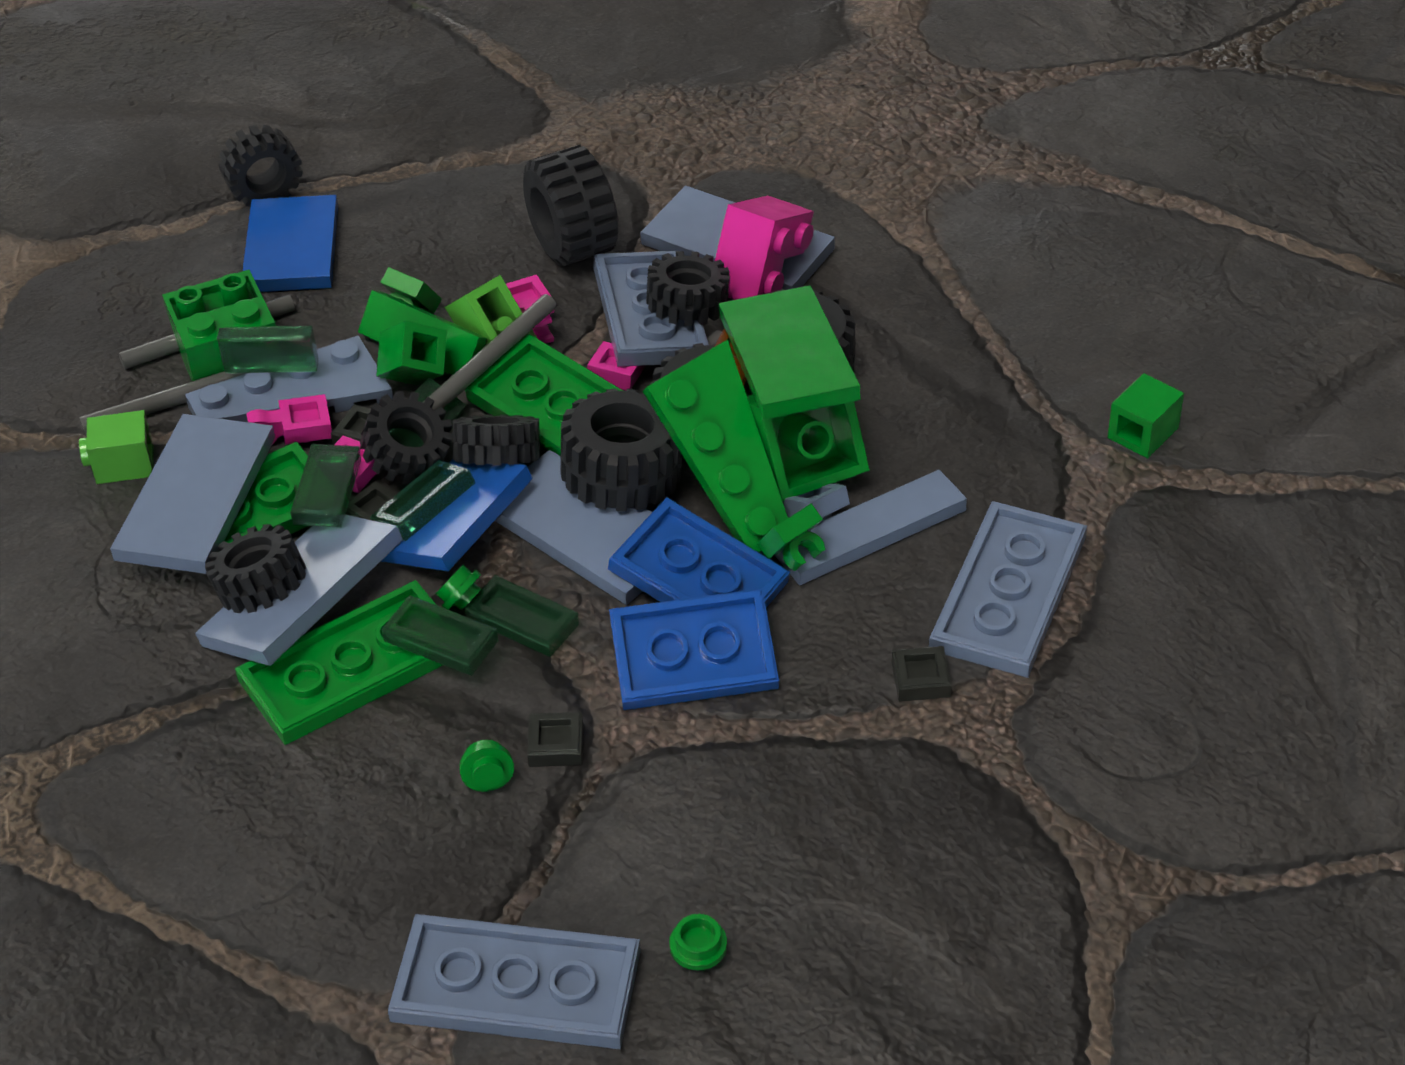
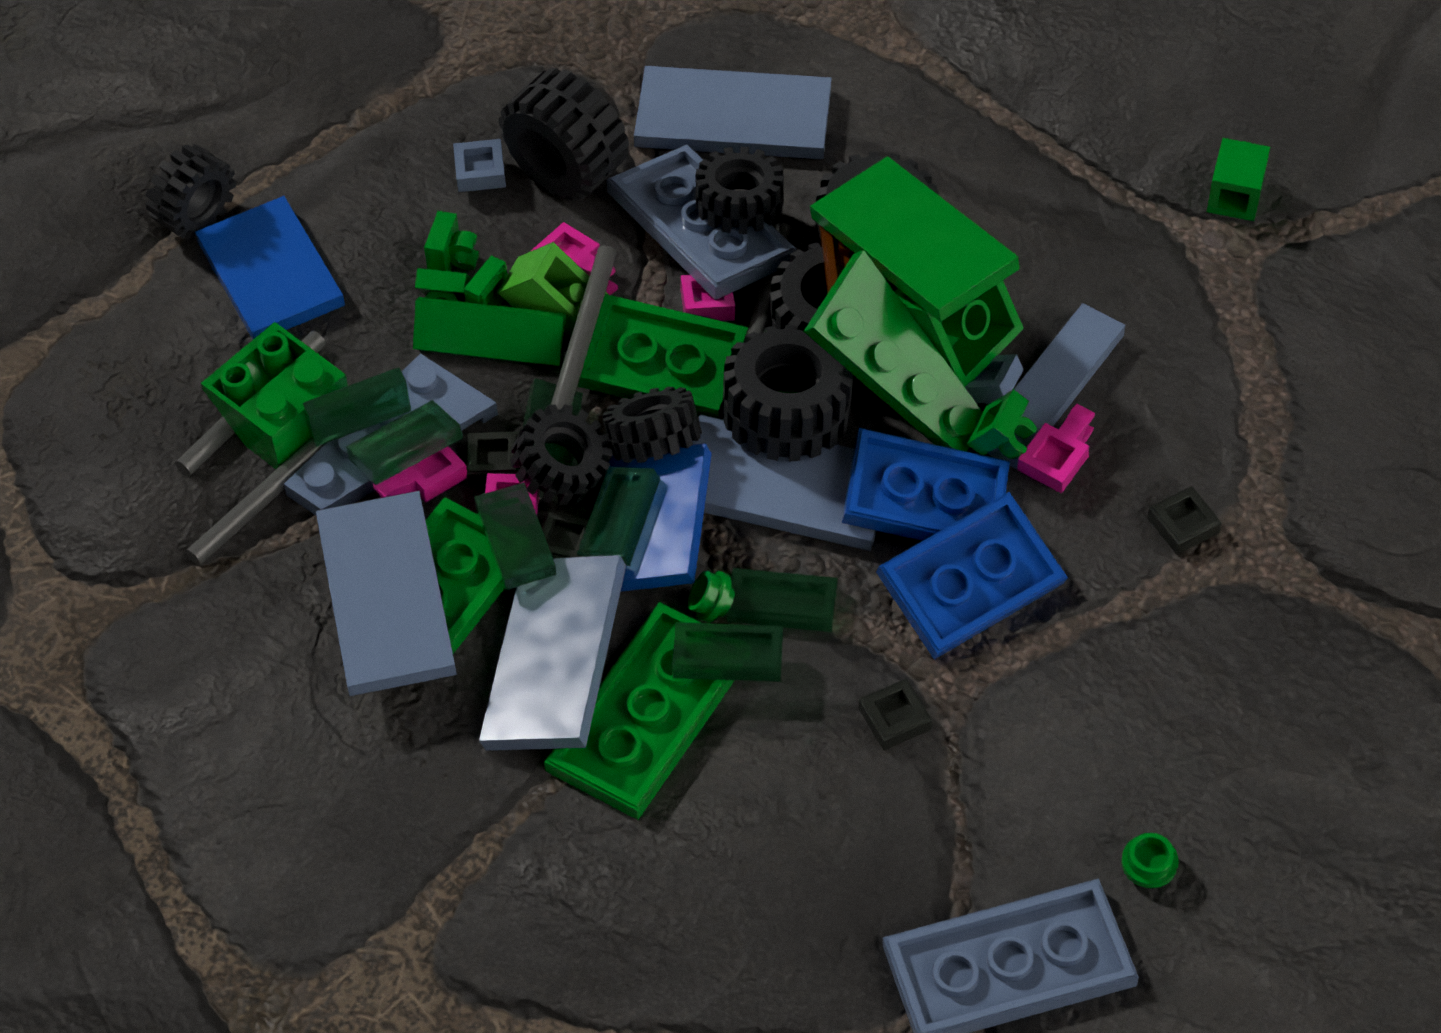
camera: 25 degrees left, 10 degrees up
(118, 447) = (259, 569): bright green brick -> none
(255, 568) = (520, 670): black tyre -> none
(290, 389) = (404, 442): none -> clear green tile
(411, 353) = (504, 358): green brick -> none
(433, 263) = (449, 246): none -> green tile
(438, 296) = (486, 283): none -> green tile
(486, 766) = (855, 766): green plate -> none
(501, 217) = (479, 165): none -> sand blue plate
(758, 239) = (780, 107): dark pink brick -> none
(839, 579) = (1059, 453): none -> dark pink plate
(1009, 588) = (1211, 403): sand blue tile -> none

